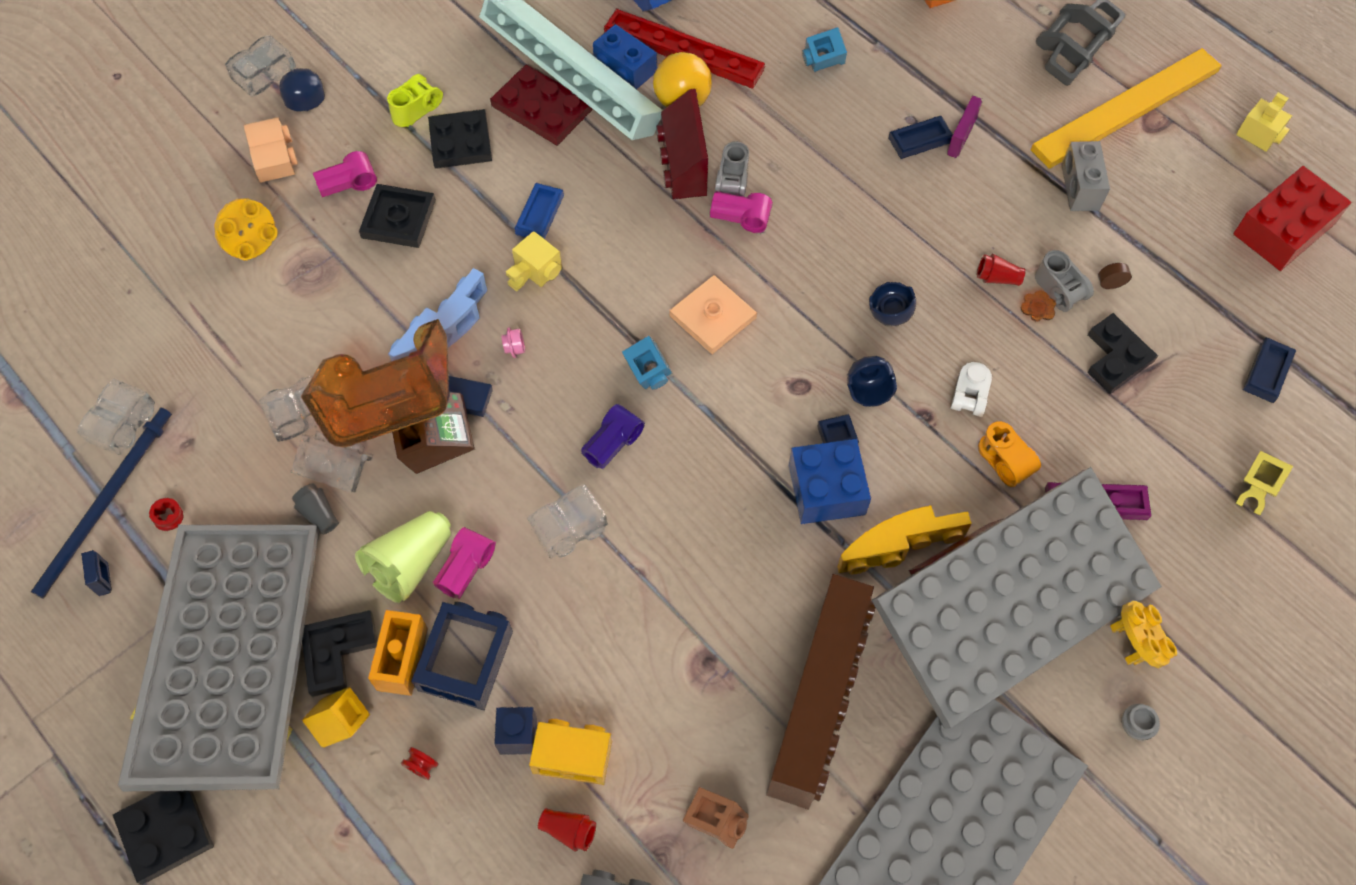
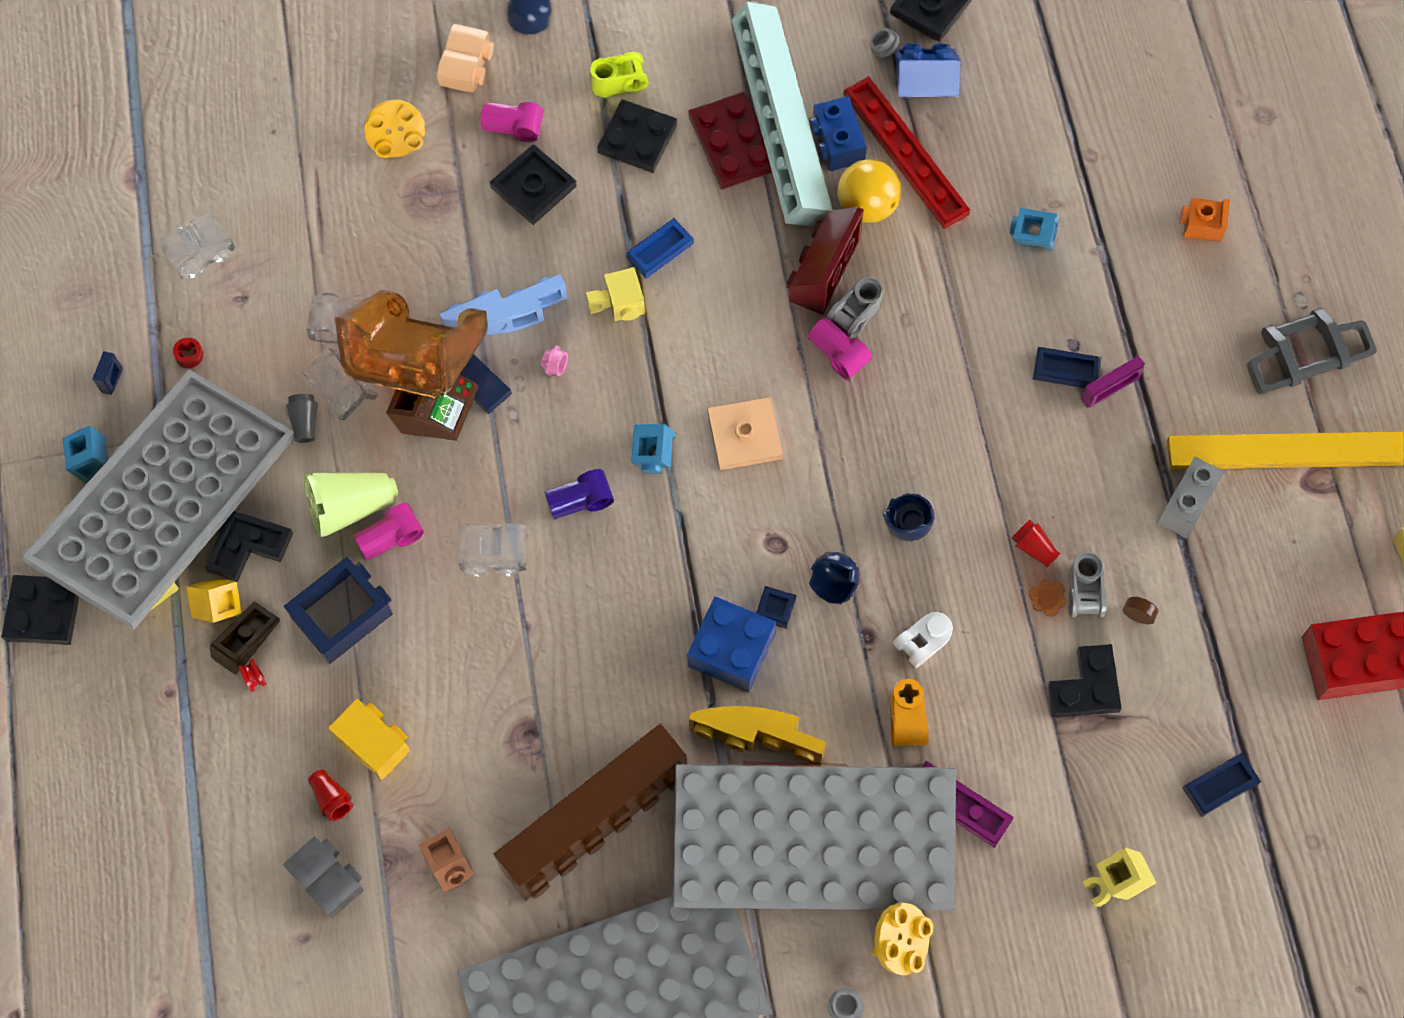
camera: 35 degrees right, 5 degrees up
(119, 657) = (85, 453): none -> dark azure brick
(151, 431) = (144, 314): dark blue bar -> none
(386, 736) = (243, 637): none -> dark brown slope
(398, 652) = (288, 576): light orange brick -> none
(515, 730) = (337, 692): dark blue brick -> none

